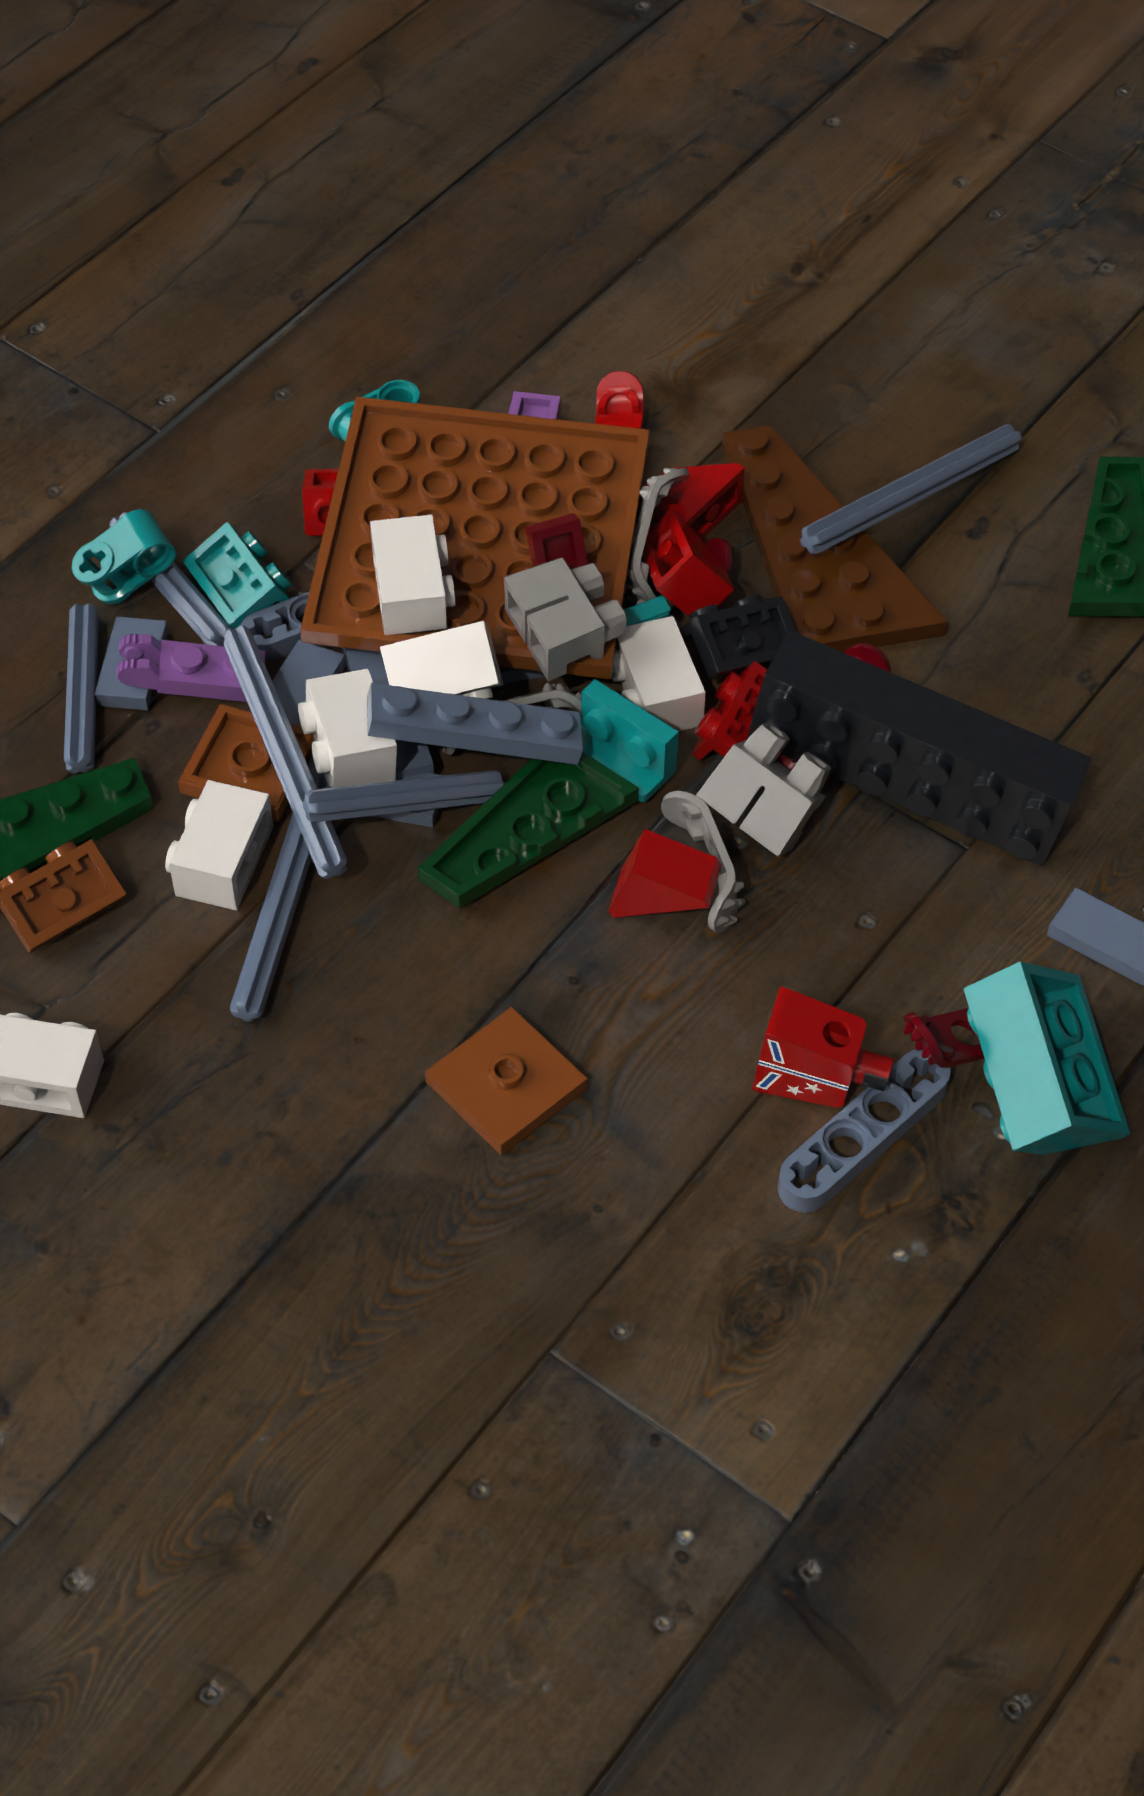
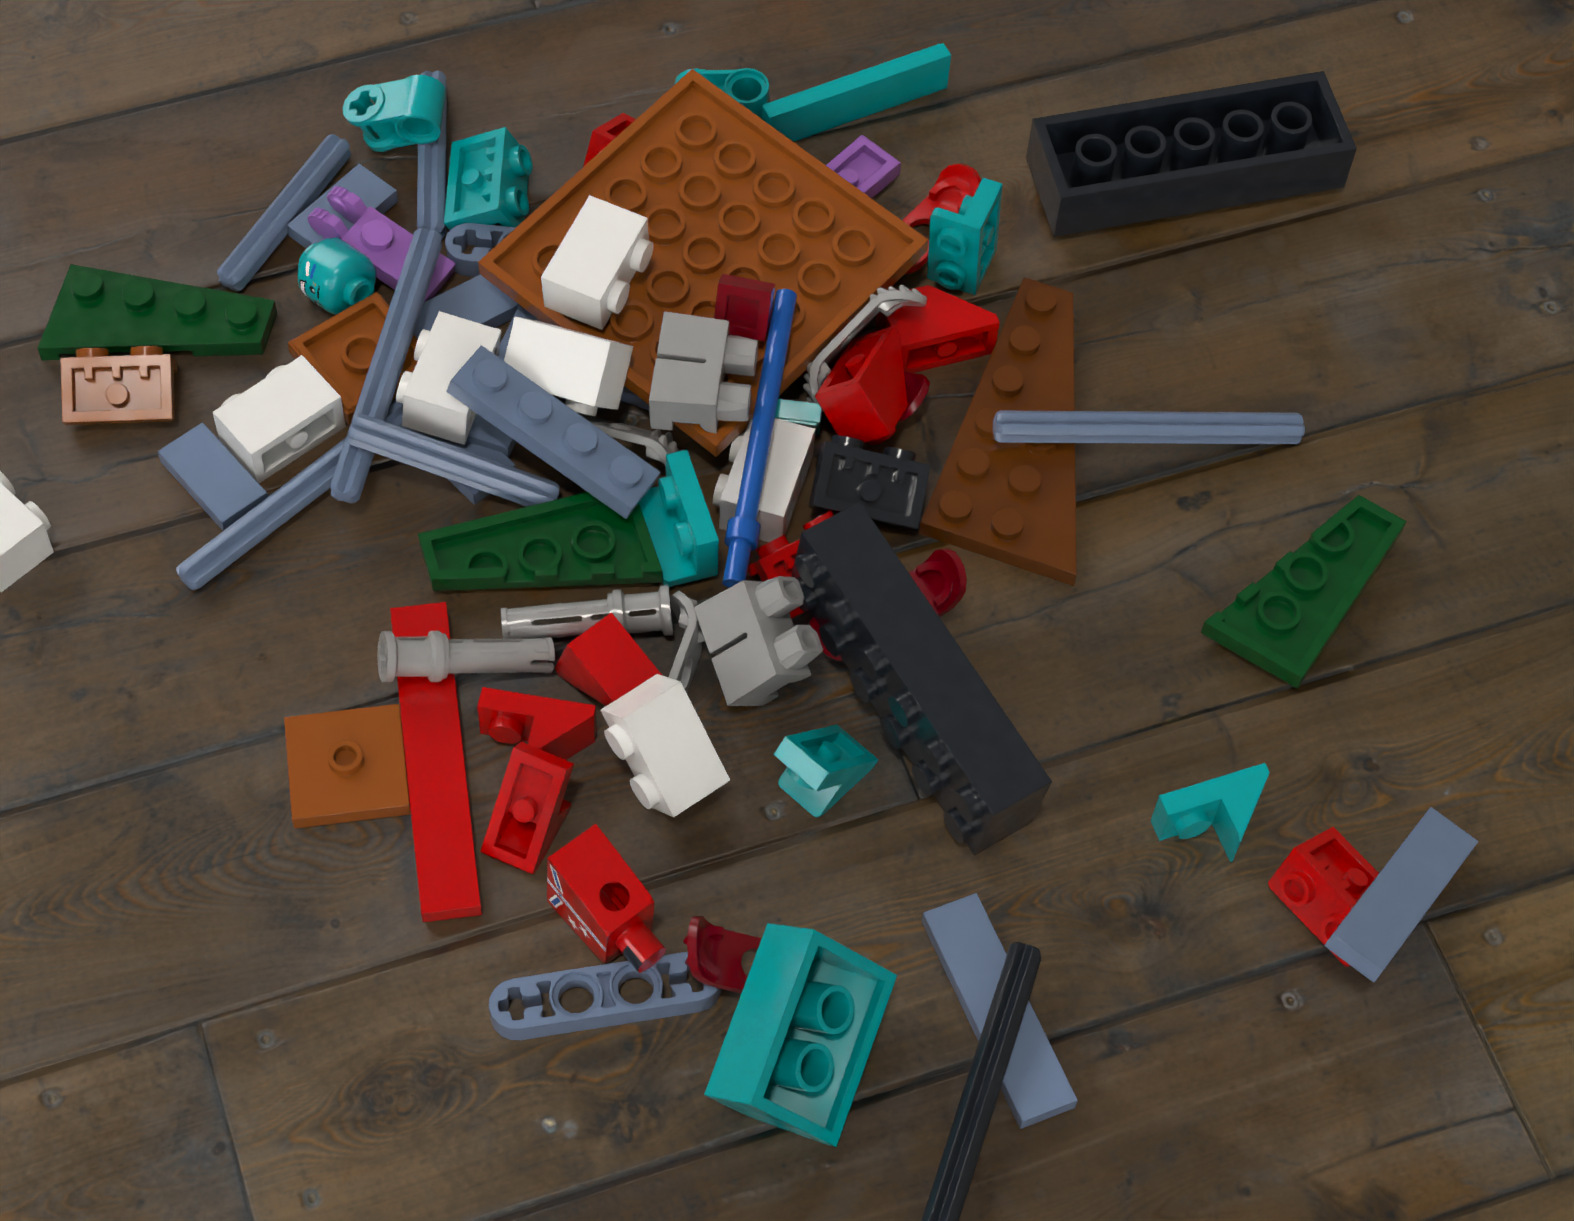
camera: 30 degrees right, 5 degrees up
(174, 710) = (335, 274): none -> teal head
(197, 923) = (212, 476): none -> sand blue tile
(490, 355) = (860, 93): none -> teal tile
(521, 946) = (439, 656): none -> light grey pin
(613, 1067) = (436, 779): none -> red tile
(623, 836) = (518, 622): none -> light grey pin
(643, 953) = (543, 722): none -> red slope
(668, 419) = (966, 241): none -> teal bracket
(684, 715) = (743, 529): none -> blue bar
(689, 1021) = (528, 808): none -> red slope
(763, 908) = (663, 746): none -> white brick
(773, 282) = (1189, 153): none -> black brick
(884, 868) = (822, 766): none -> teal slope

